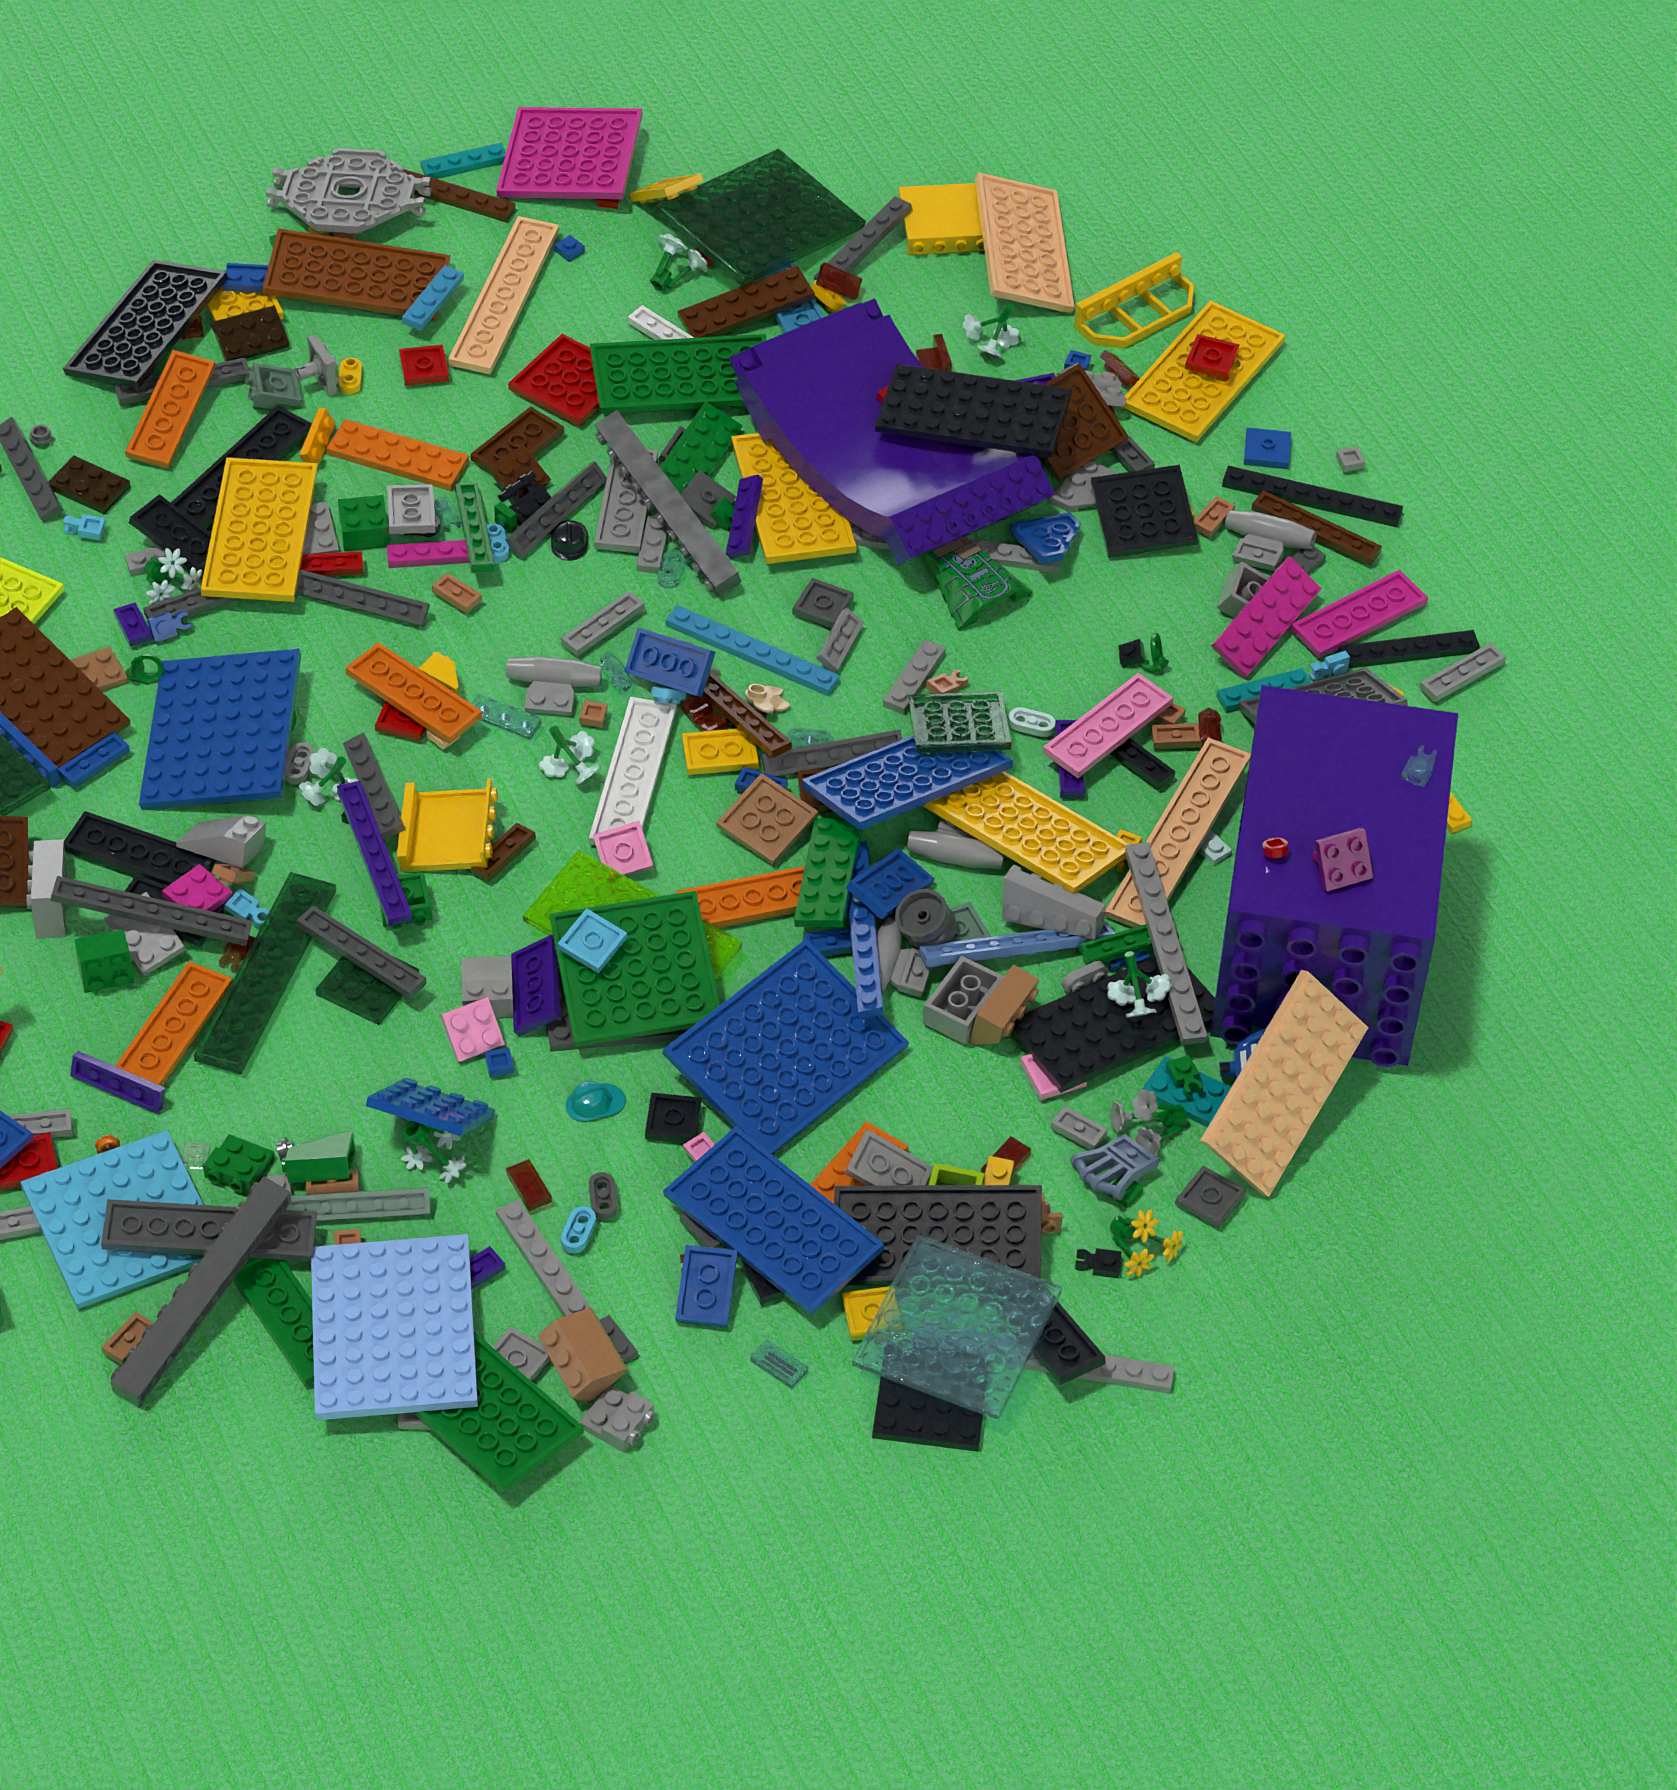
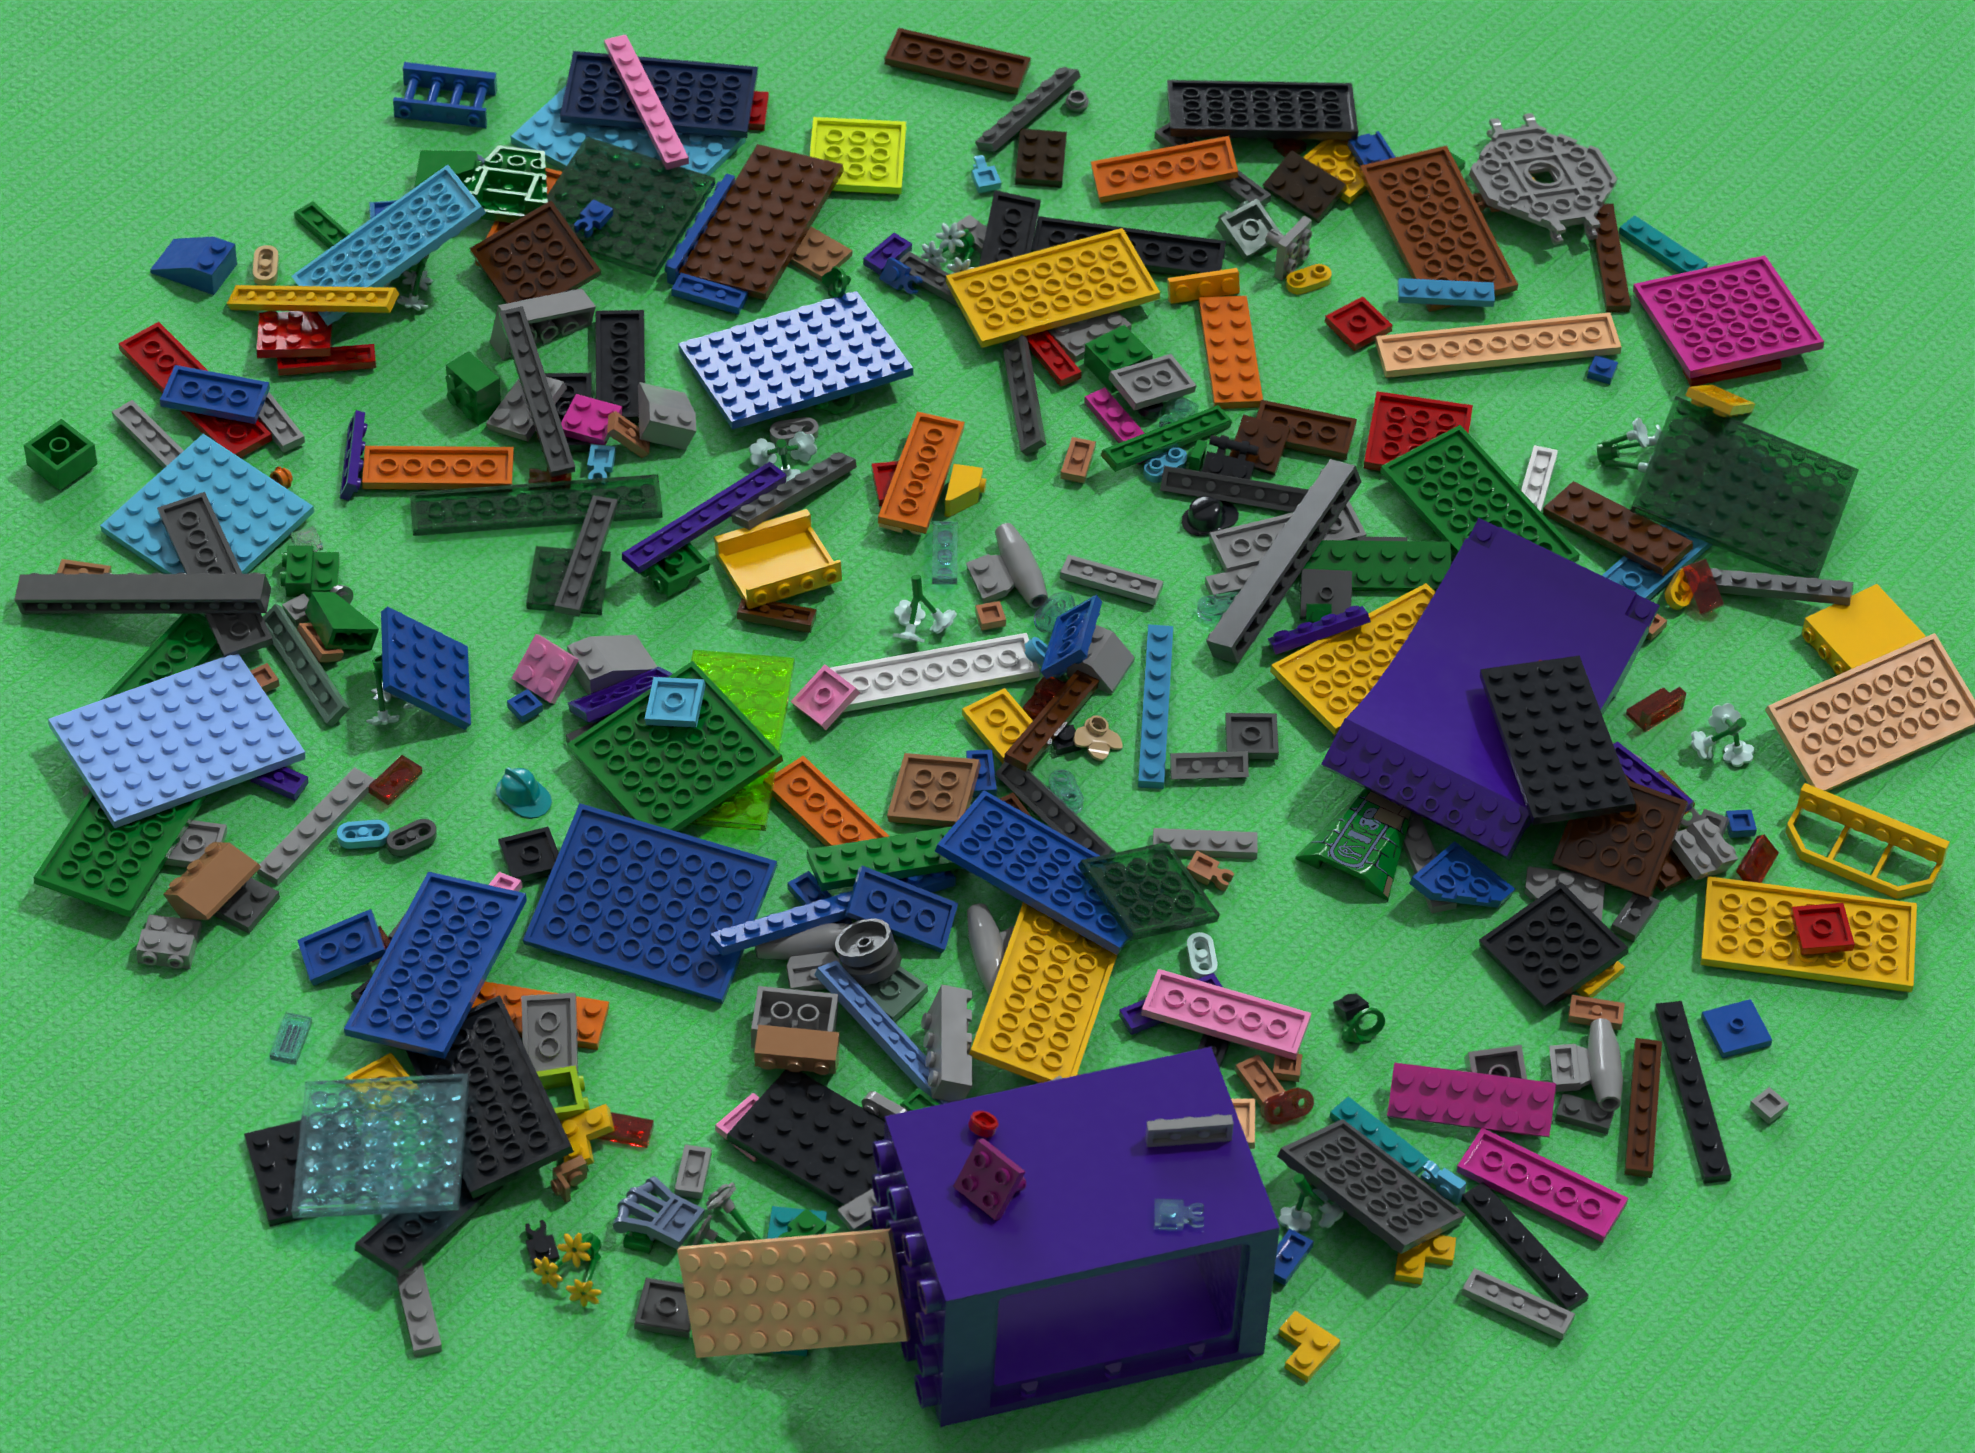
camera: 65 degrees right, 0 degrees up
(1124, 993) = (867, 1137): light aqua plant -> none
(1346, 724) = (1189, 1130): none -> light grey plate

